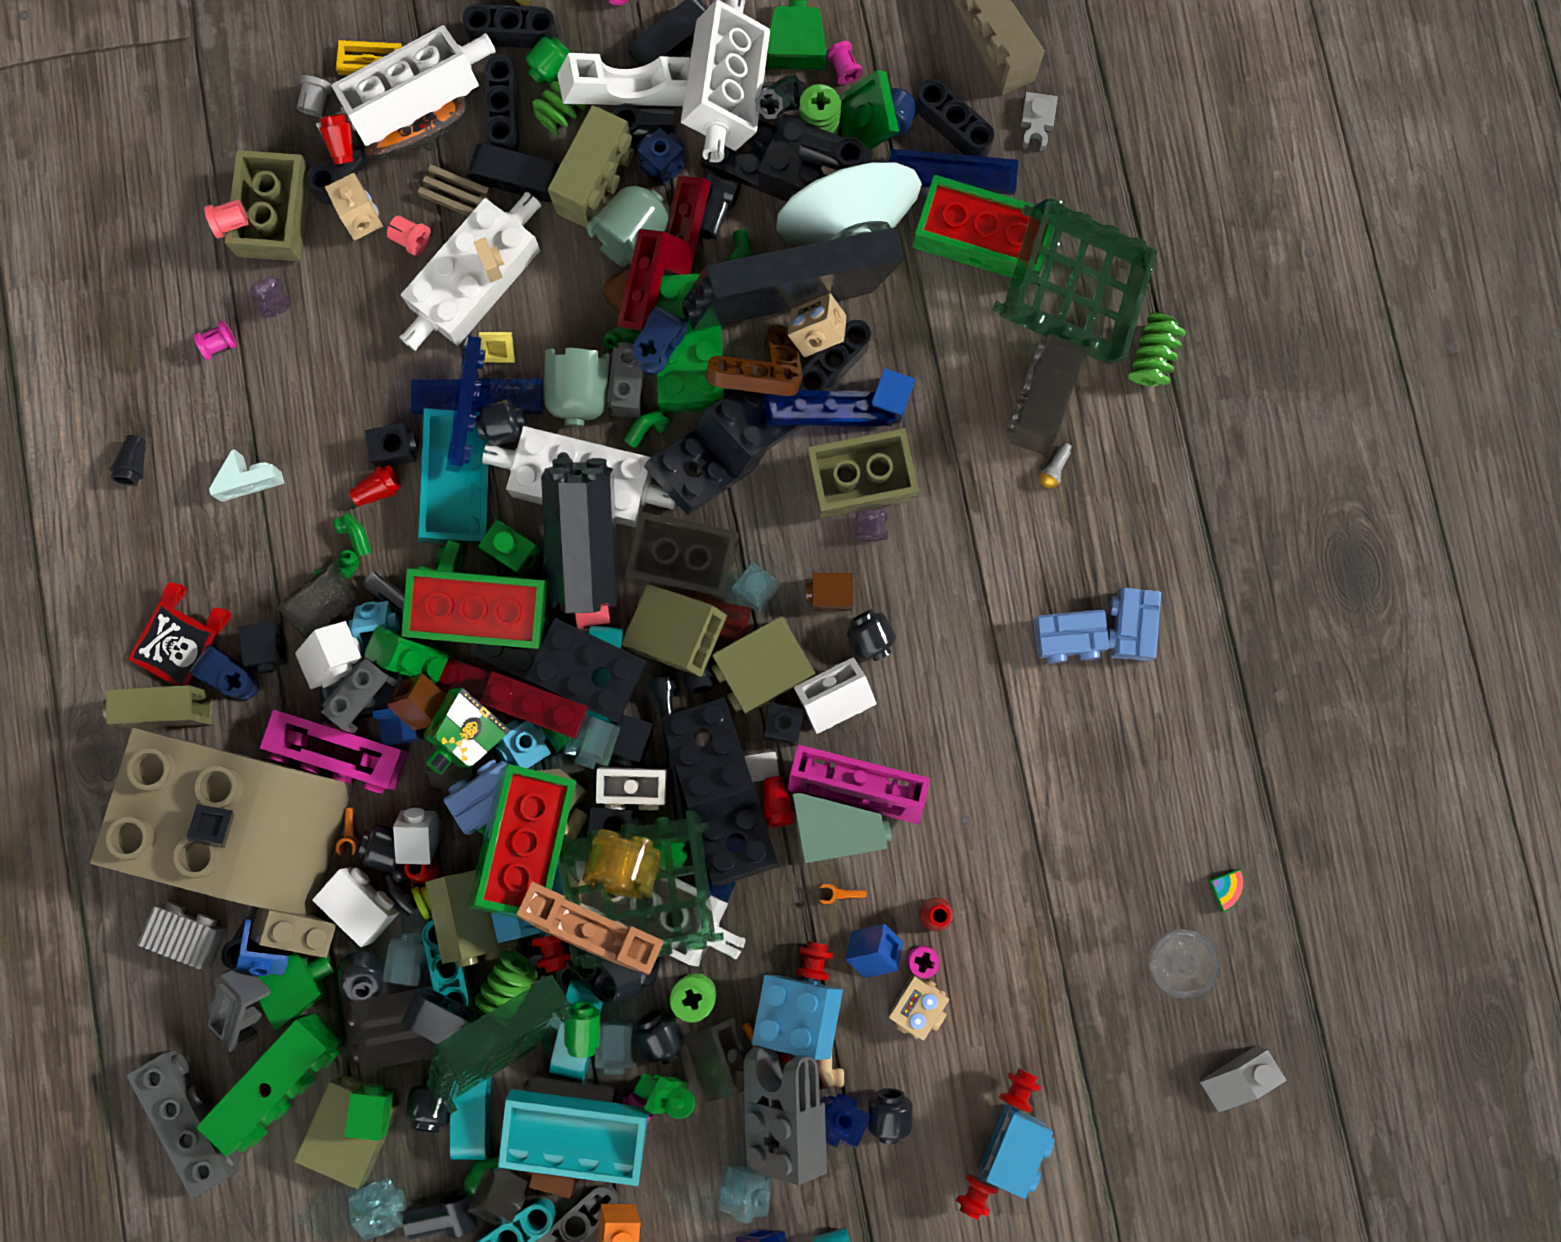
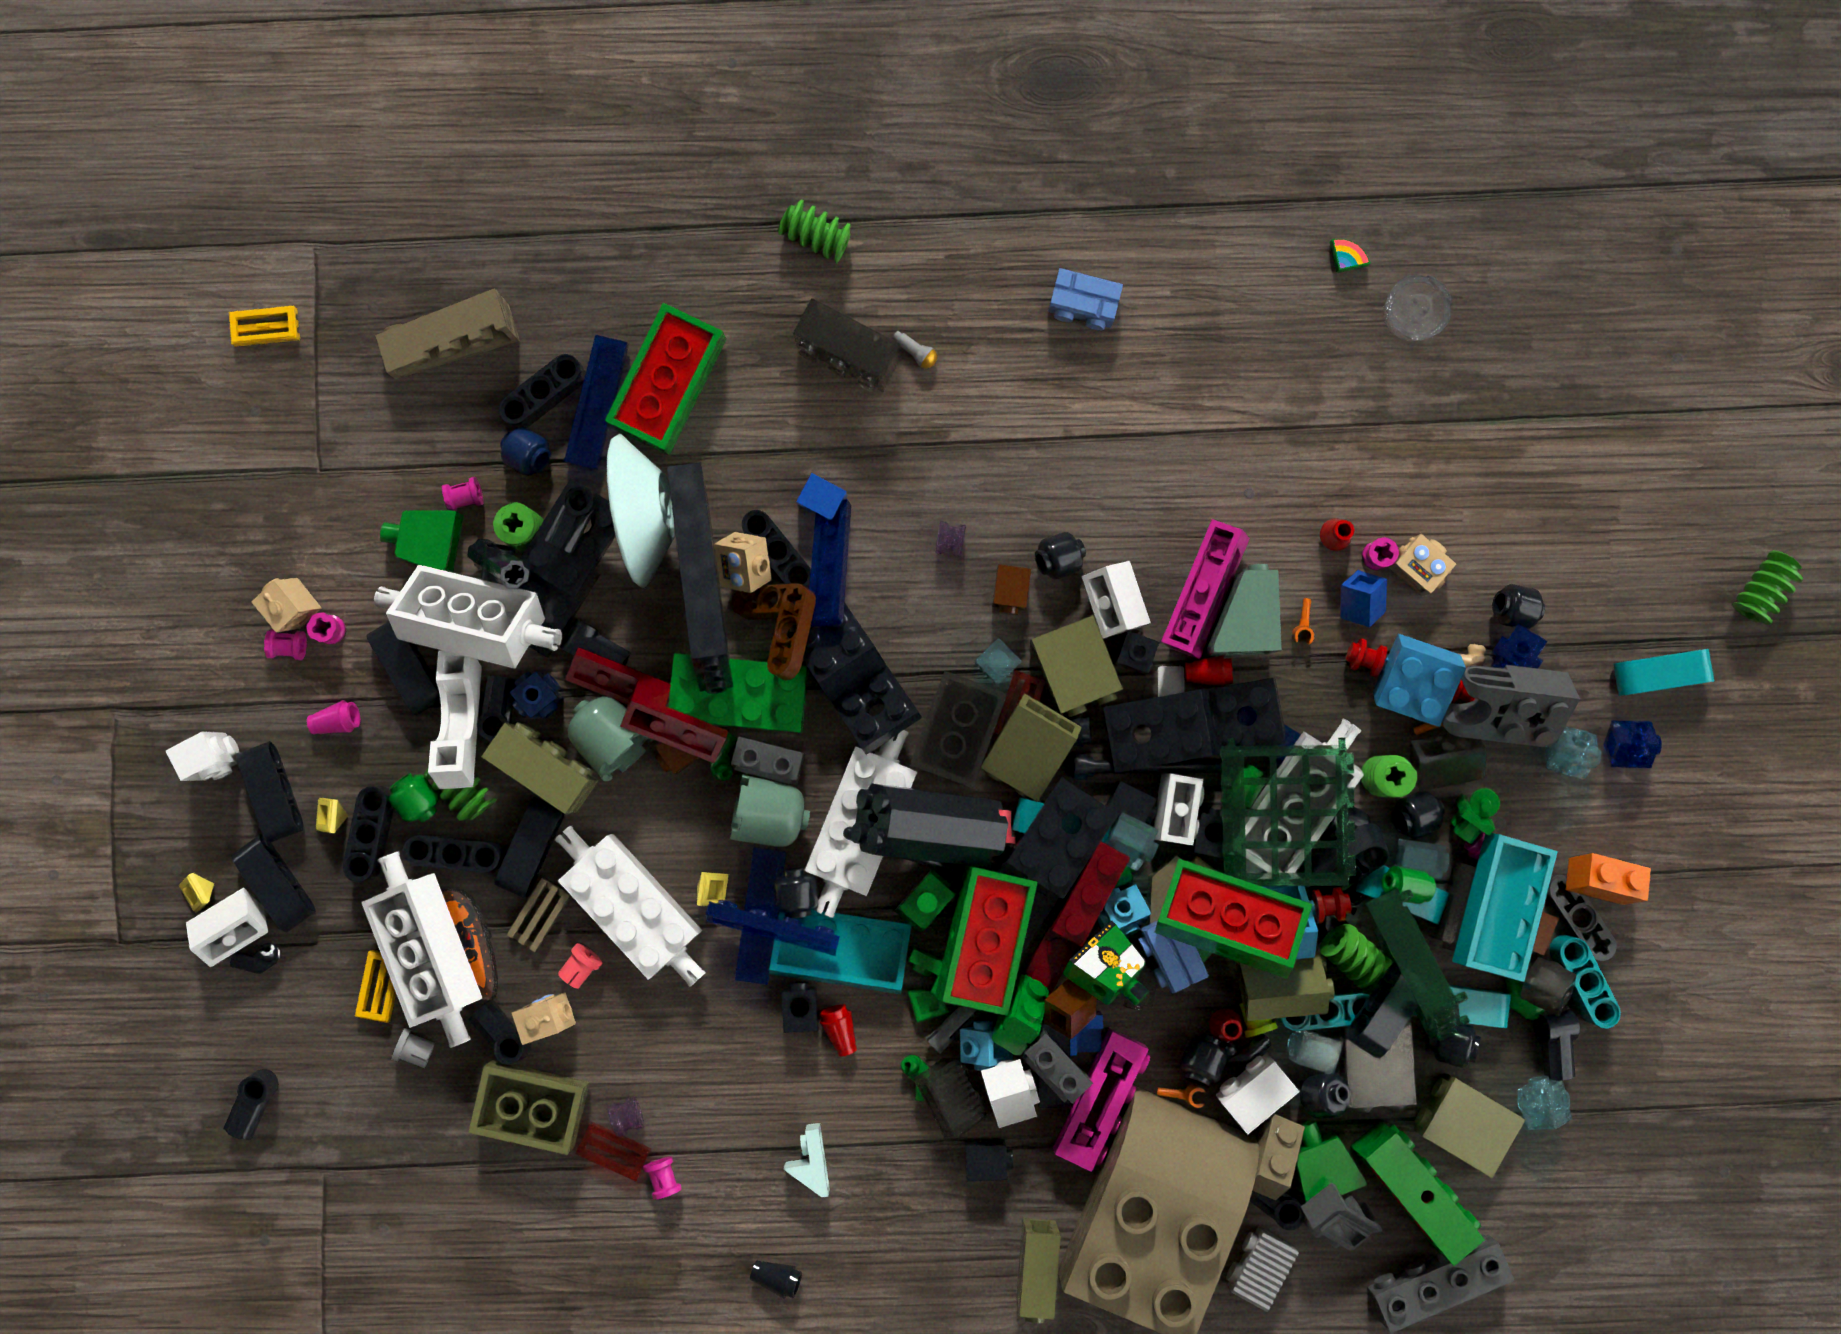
camera: 85 degrees left, 5 degrees up
(176, 640) = (969, 1249): flag -> none
(210, 826) = (1175, 1221): black tile -> none
(222, 672) = (1006, 1206): dark blue piece -> none
(224, 290) = (608, 1163): none -> clear red tile
(225, 217) = (543, 1149): coral bush -> none
(259, 963) = (1305, 1193): blue bracket -> none
(338, 137) = (471, 1025): red cone -> none
(356, 533) = (884, 1054): green arm -> none
(368, 1113) = (1459, 1099): green brick -> none
(409, 560) = (925, 1004): none -> green tile
(416, 836) = (1203, 1024): light grey slope -> none
(490, 259) = (630, 881): tan plate -> none
(589, 930) = (1327, 861): nougat slope -> none
(622, 865) = (1265, 824): clear yellow brick -> none
(645, 423) = (814, 751): green arm -> none
(661, 334) = (735, 716): dark blue piece -> none
(742, 245) = (652, 629): green arm -> none
(862, 473) = (899, 539): olive brick -> none
(869, 111) = (525, 478): green tile -> none
(1012, 1151) = (1566, 496): dark azure brick -> none
(1039, 117) = (548, 307): light grey plate -> none
(1070, 635) = (1087, 362): medium blue brick -> none
(1101, 236) = (762, 246): clear green window -> none
(1243, 1079) = (1527, 272): light grey slope -> none

